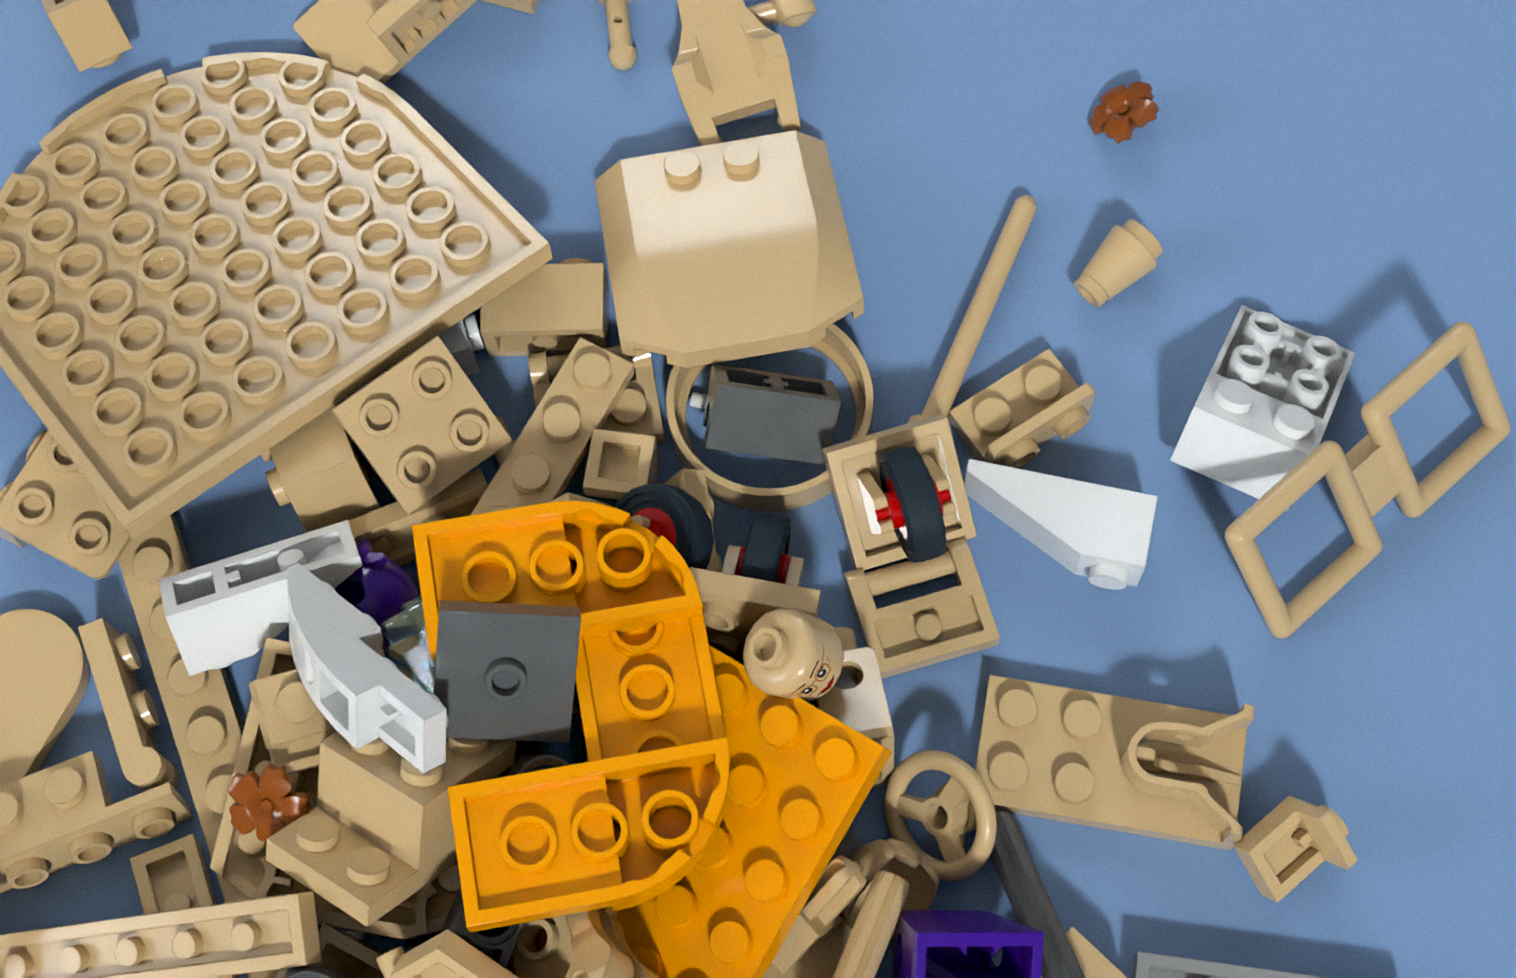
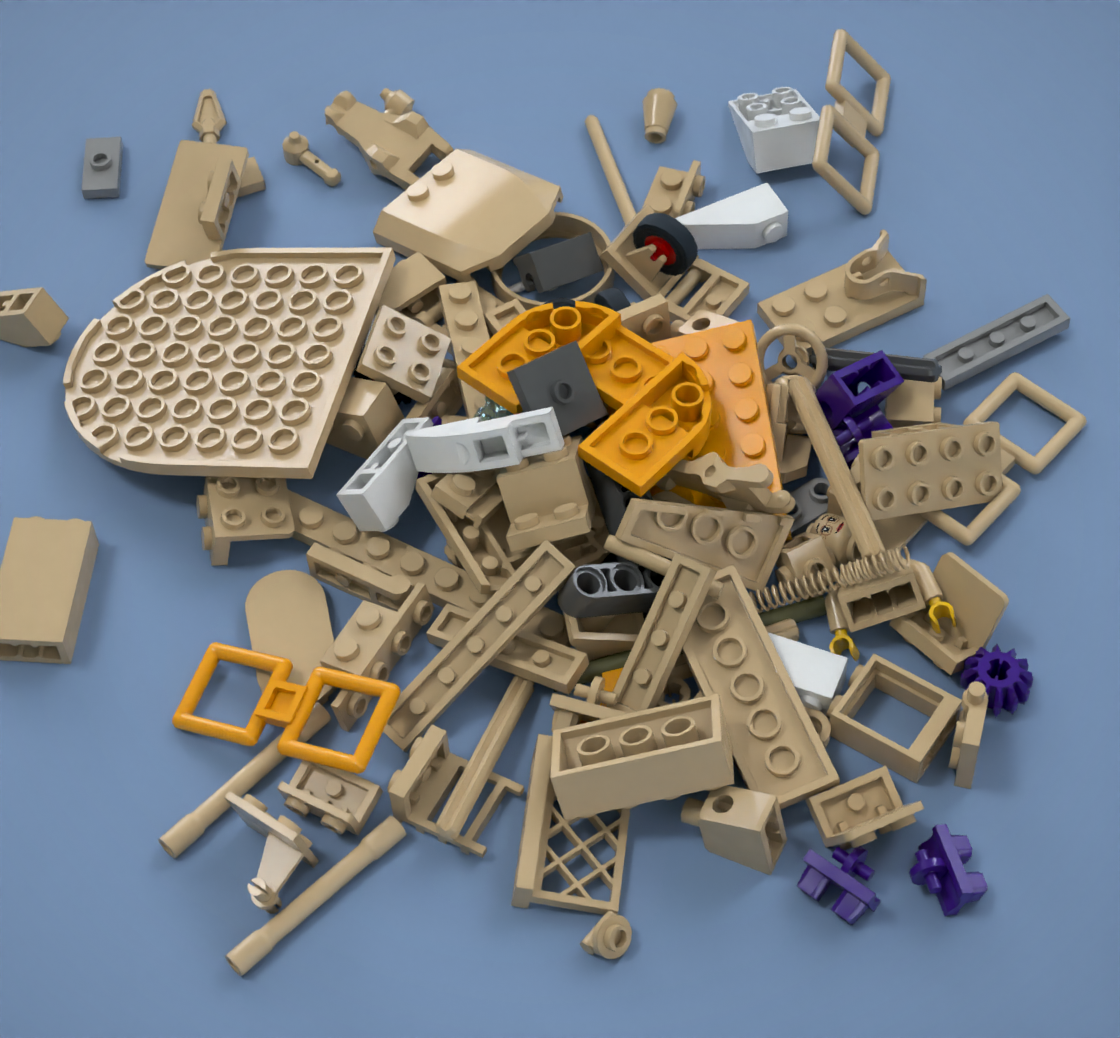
camera: 40 degrees left, 15 degrees down
(265, 801) = (487, 534): dark orange plant -> none
(793, 655) = (673, 317): tan head -> none
(1124, 110) = (601, 56): dark orange plant -> none
(1292, 845) = (949, 274): tan bracket -> none

